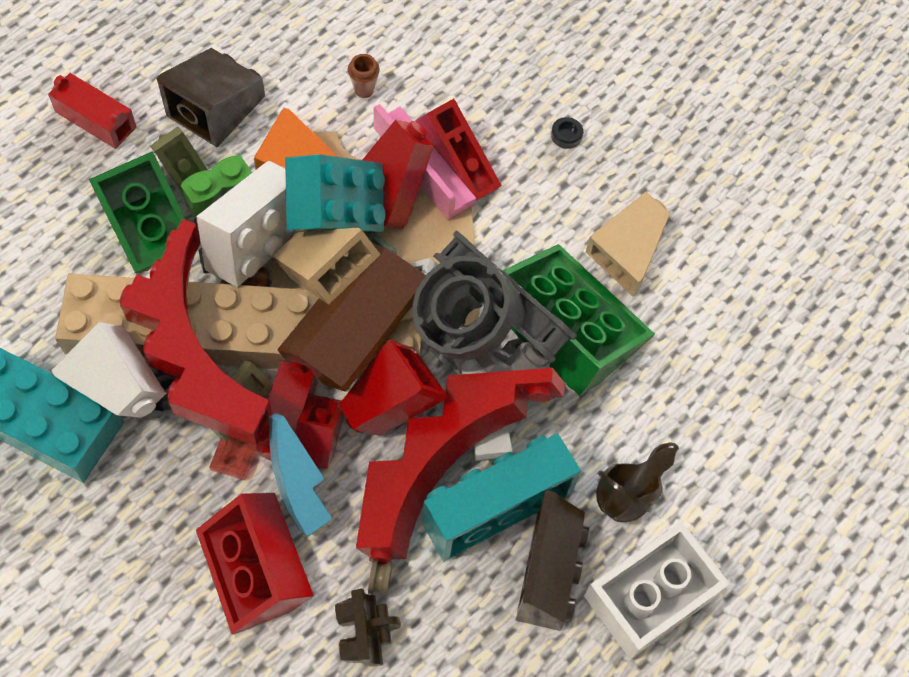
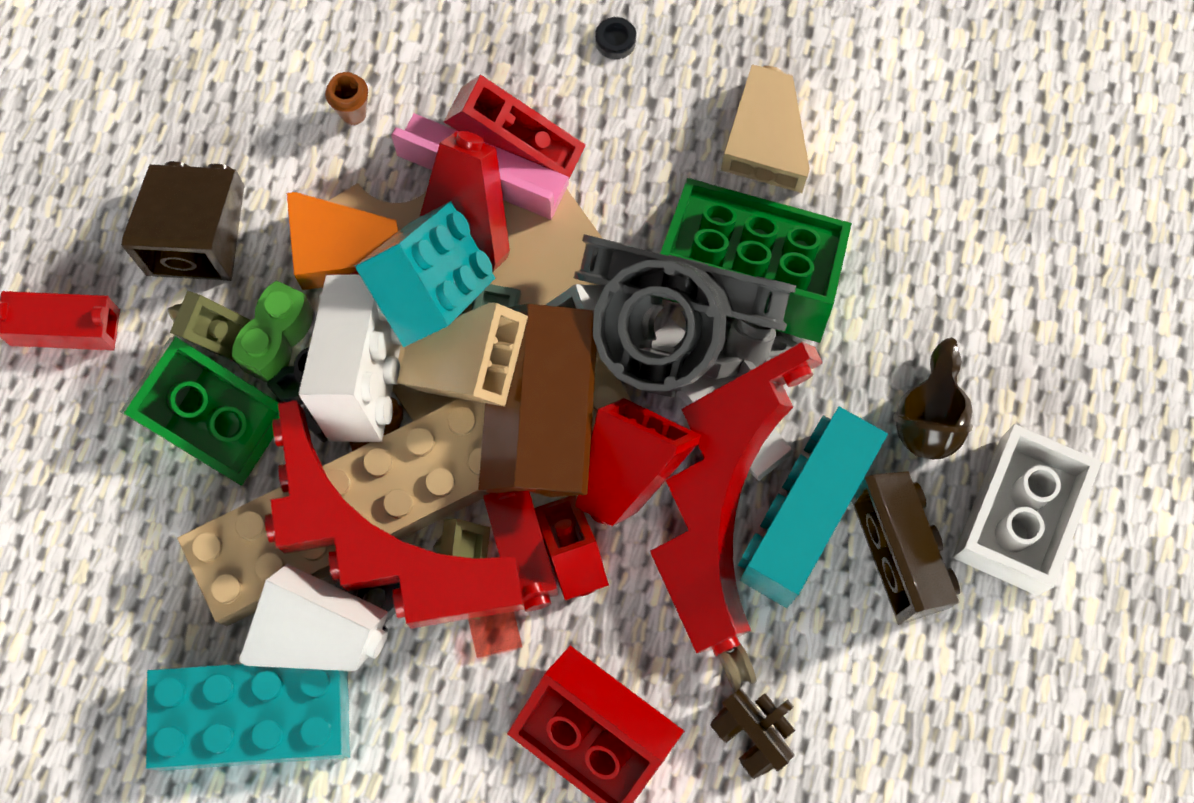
camera: 25 degrees left, 10 degrees up
(296, 477) = (586, 616): medium azure slope -> none

